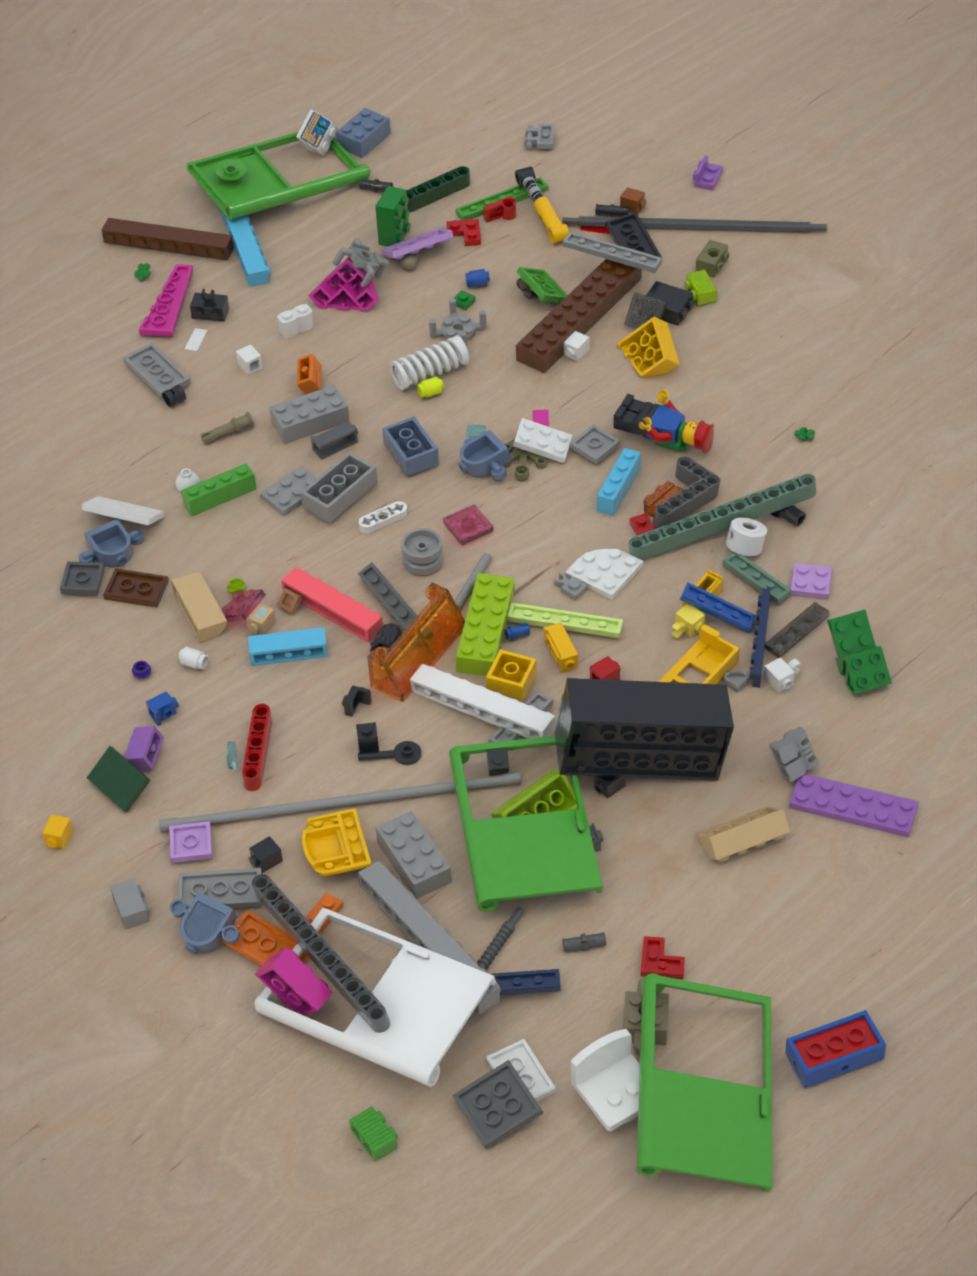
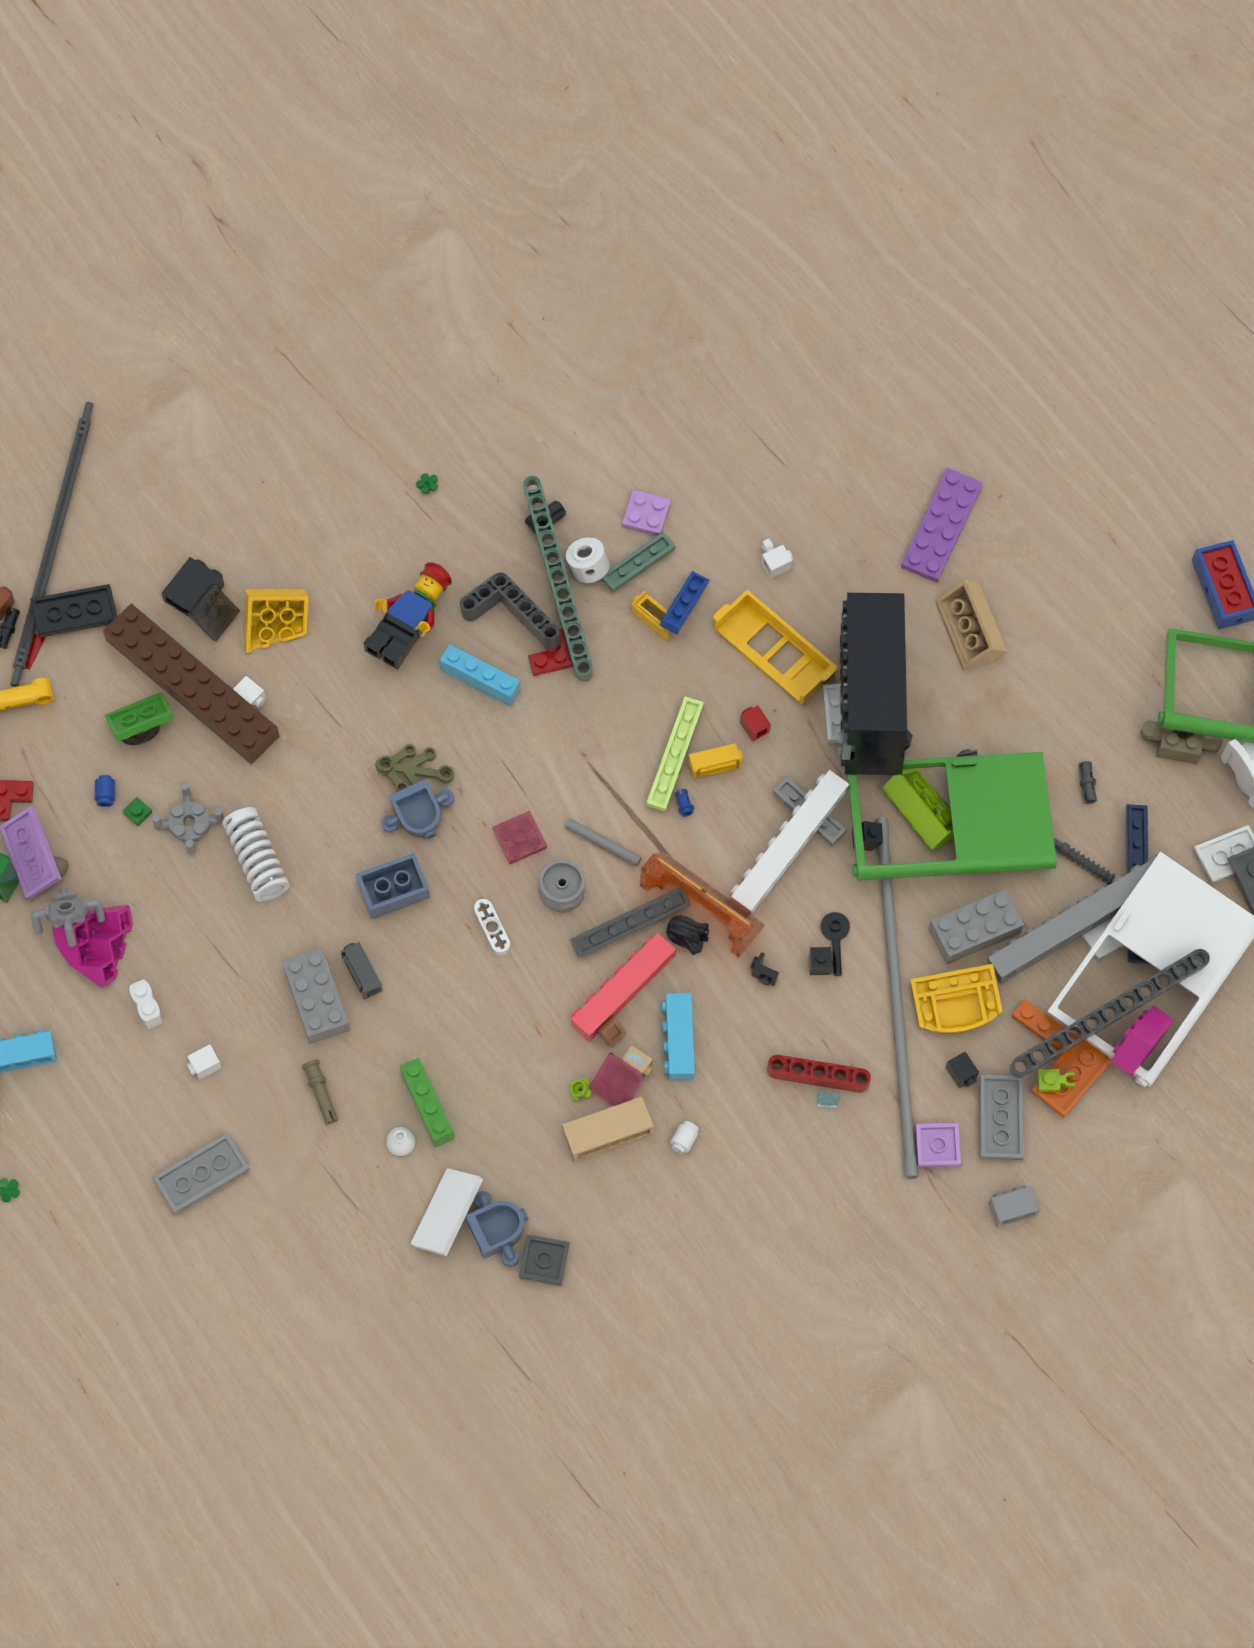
camera: 90 degrees left, 20 degrees up
(57, 831) = (915, 1281): yellow brick -> none
(118, 779) = (852, 1216): dark green tile -> none
(136, 587) = (563, 1201): reddish brown tile -> none
(141, 669) = (694, 1189): dark purple plate -> none
(144, 747) = (813, 1190): medium lavender brick -> none
(162, 707) = (753, 1171): blue brick -> none
(167, 309) = (89, 1161): dark pink wing -> none
(174, 395) = (253, 1152): black wheel -> none
(196, 339) = (145, 1128): white sticker -> none
(205, 923) = (1051, 1127): sand blue piece -> none
(209, 306) = (97, 1107): black brick -> none
(255, 922) = (1050, 1080): none -> lime plate
(286, 493) = (433, 1023): light grey plate -> none
(309, 374) = (251, 991): orange brick -> none
(339, 487) = (447, 967): light grey brick -> none
(430, 387) = (291, 859): neon yellow brick -> none
(475, 430) = (371, 818): clear light blue tile -> none
(485, 623) = (674, 831): lime brick -> none
(511, 675) = (753, 811): yellow brick -> none
(541, 417) = (359, 748): dark pink sticker -> none
(542, 440) = (403, 746): white plate -> none
(571, 587) = (623, 742): light grey plate -> none
(594, 444) = (413, 694): light grey plate -> none
(605, 570) = (605, 707): white plate -> none
(612, 252) = (116, 629): light grey plate -> none
(656, 962) = (1115, 723): red plate -> none
(661, 494) = (514, 635): clear orange brick -> none
(688, 621) = (694, 634): light yellow brick -> none
(701, 286) = (172, 549): lime brick -> none
(712, 257) = (129, 539): olive brick -> none
(736, 680) = (774, 601): light grey tile -> none
(759, 642) = (717, 568): dark blue plate -> none
(794, 754) = (891, 558): light grey hips -> none
(797, 629) = (715, 536): clear smoke plate -> none
(857, 653) = (769, 481): green piece -> none

